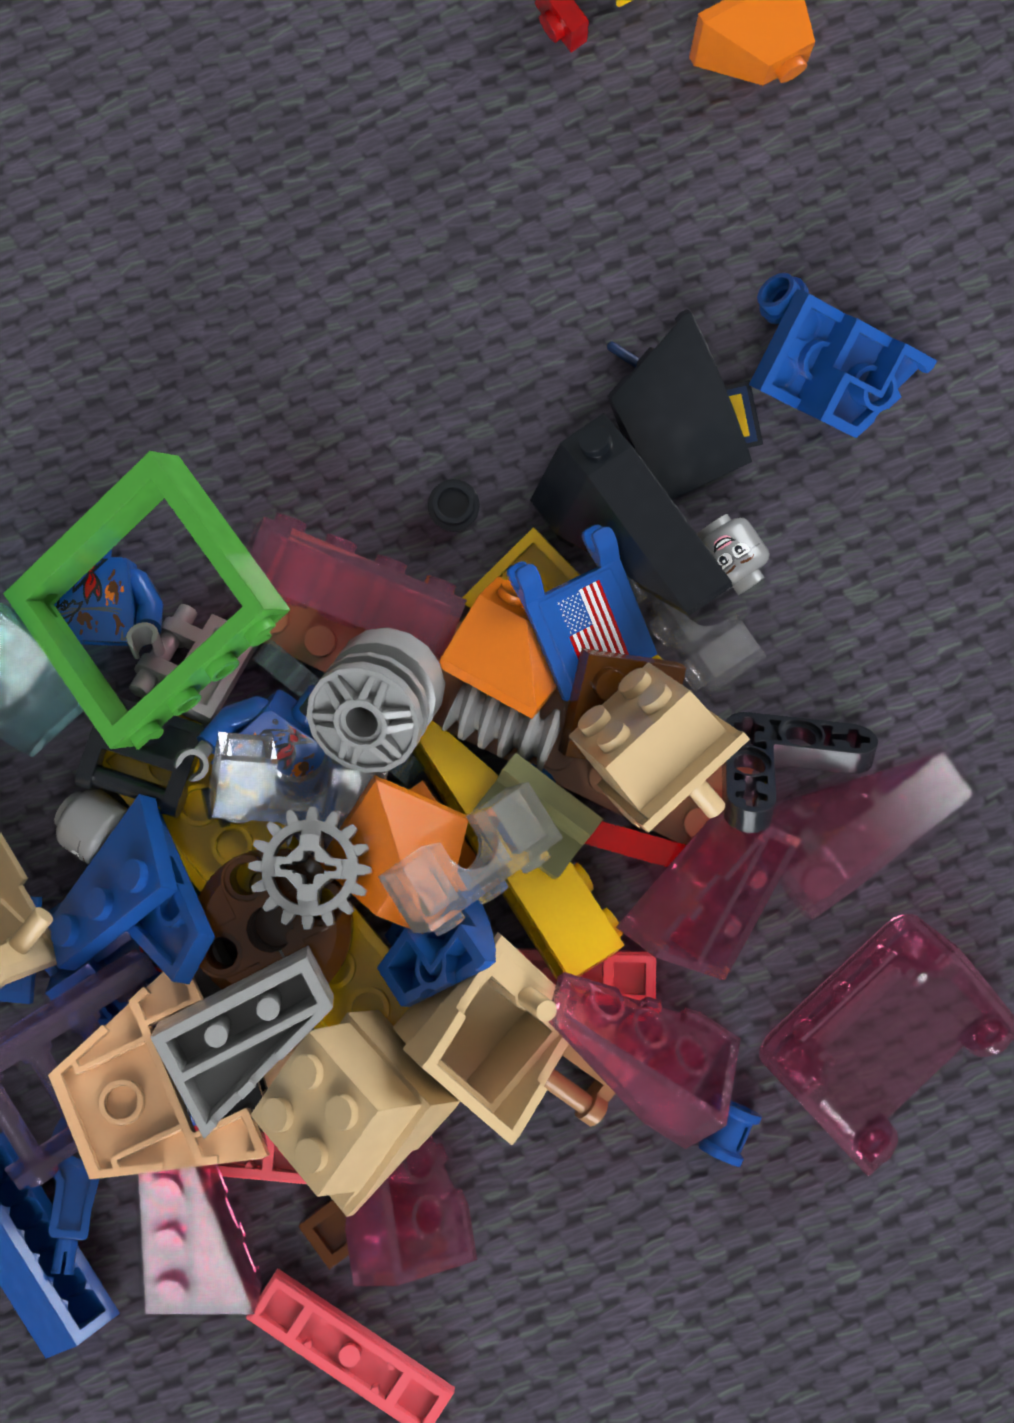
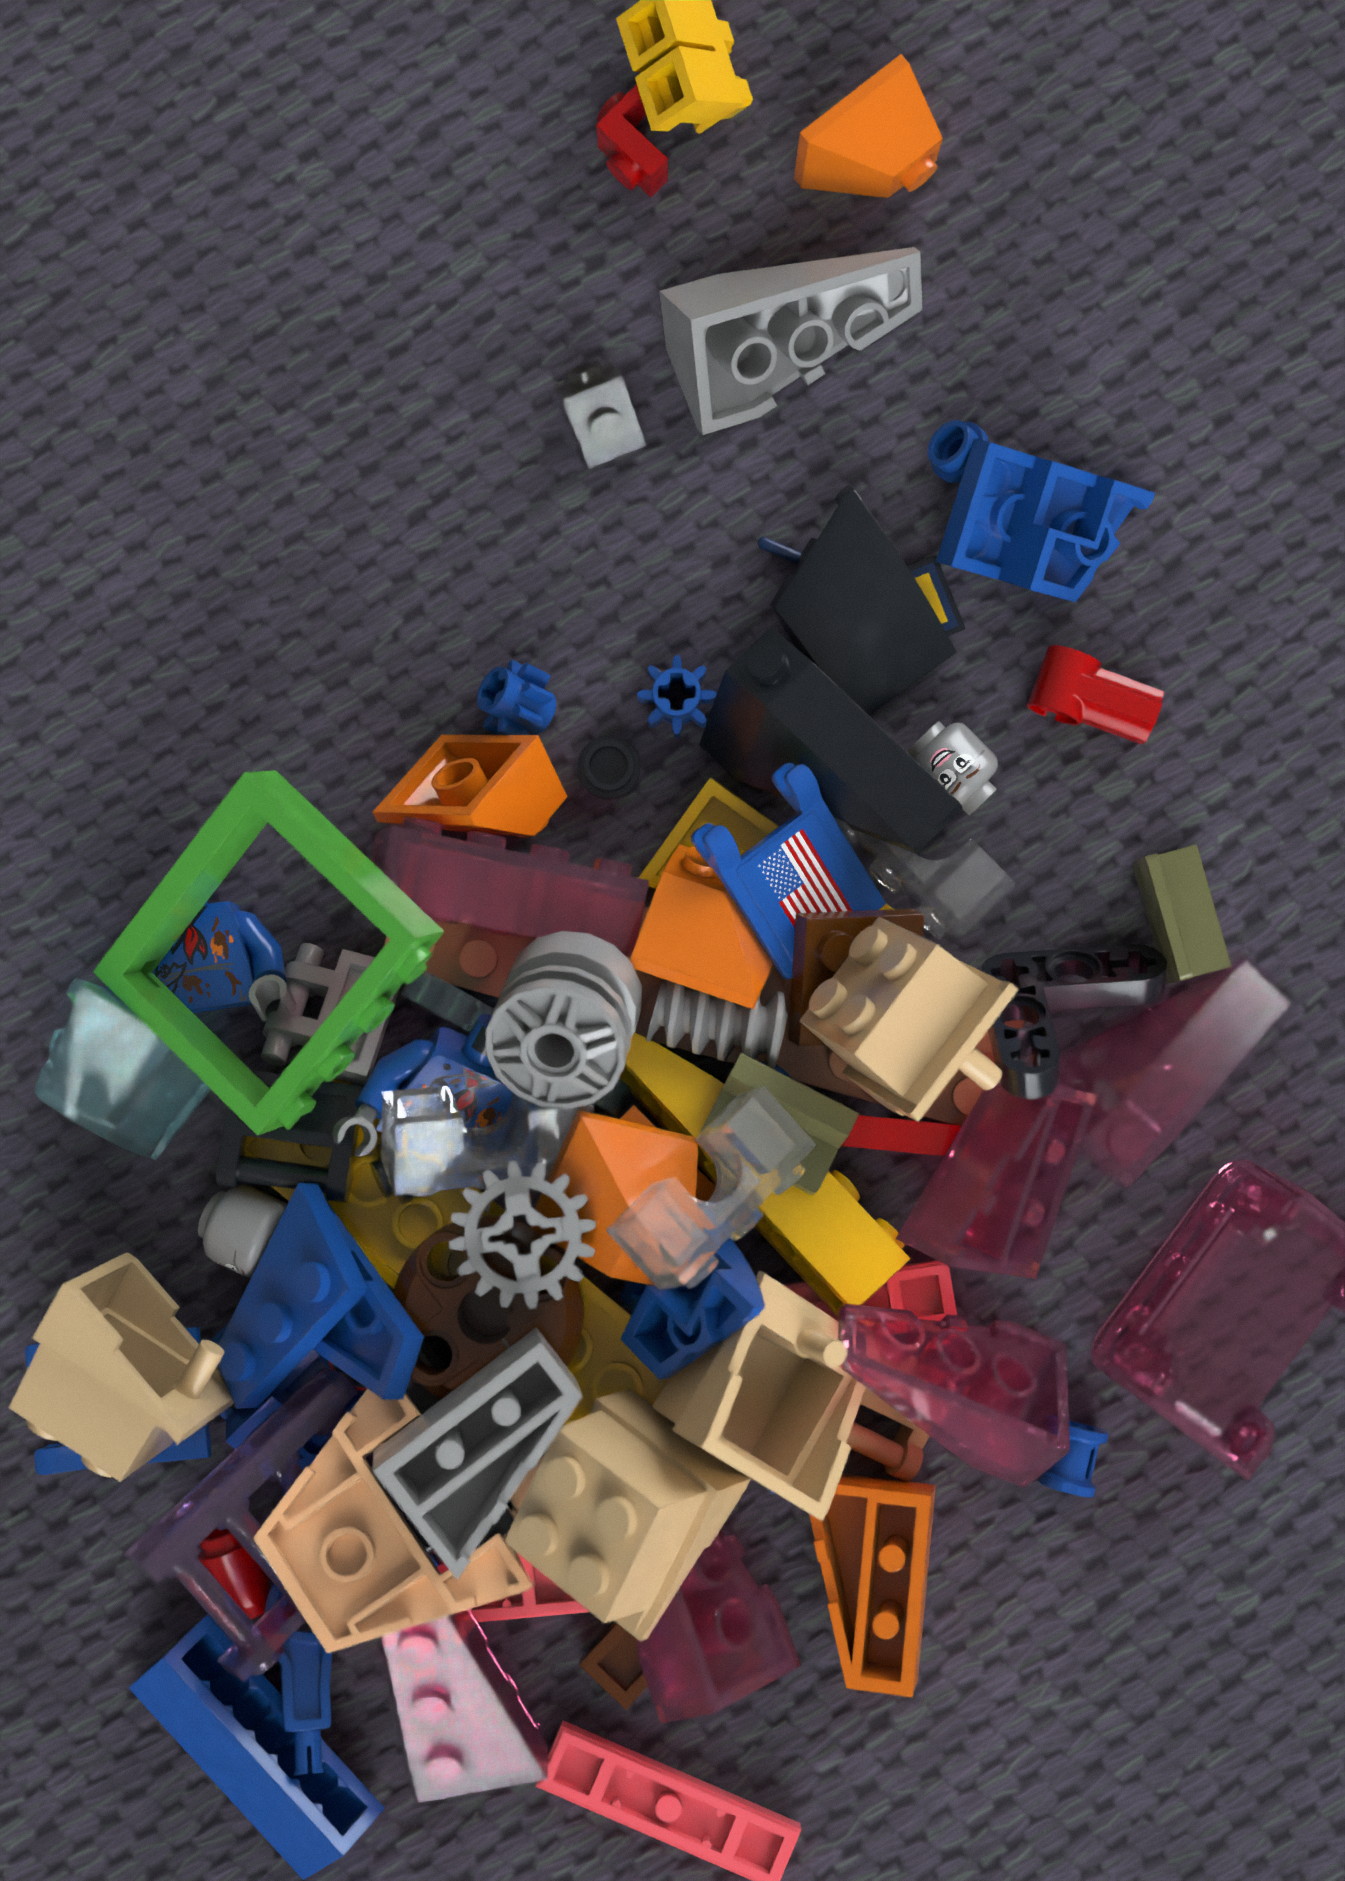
camera: 20 degrees left, 0 degrees up
(33, 1101) = (235, 1571): none -> red cone
(346, 500) = (479, 786): none -> orange slope
(388, 438) = (516, 700): none -> blue gear
(497, 218) = (599, 412): none -> clear smoke bracket
(508, 447) = (662, 686): none -> blue gear
(551, 1197) = (876, 1578): none -> orange wedge
(643, 172) = (762, 328): none -> light grey wedge
(848, 511) = (1083, 692): none -> red piece
(897, 705) = (1181, 913): none -> olive panel

